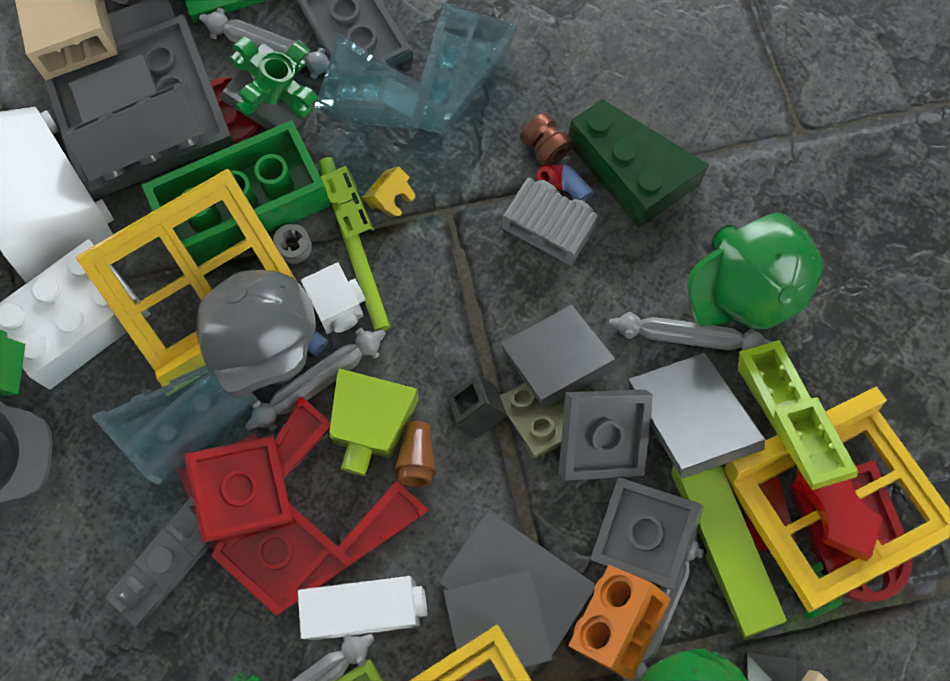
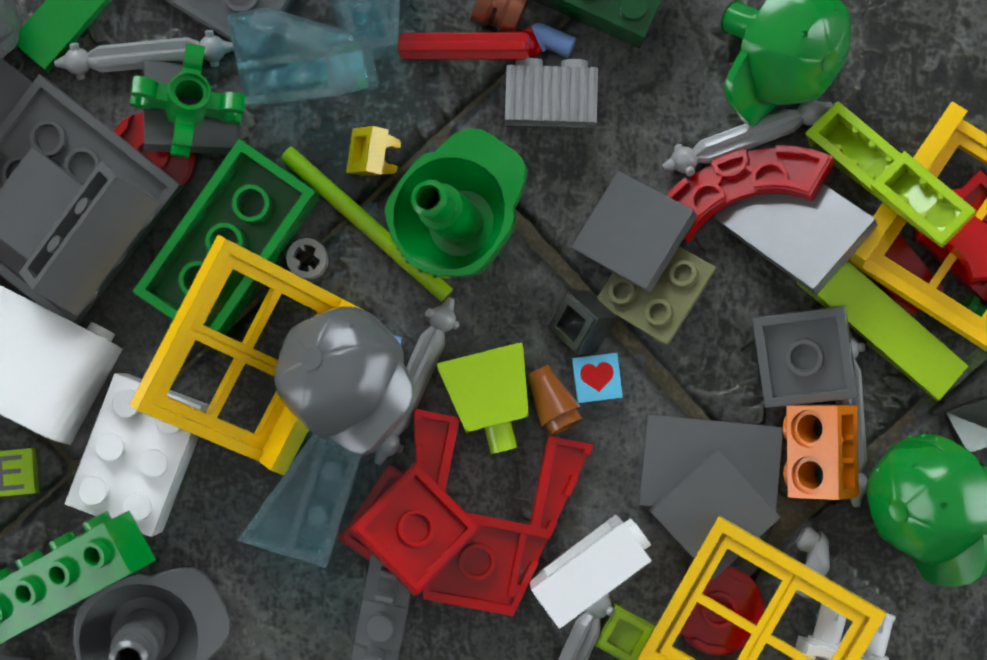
camera: 30 degrees left, 15 degrees up
(334, 298) = (386, 293): white brick -> none
(347, 209) = (332, 183): lime piece -> none
(427, 257) = (457, 205): none -> green piece
(463, 457) = (597, 377): none -> medium azure tile
(504, 151) = (464, 46): none -> red axle
(605, 434) = (721, 287): dark grey tile -> none
(673, 359) = (749, 174): none -> red tile

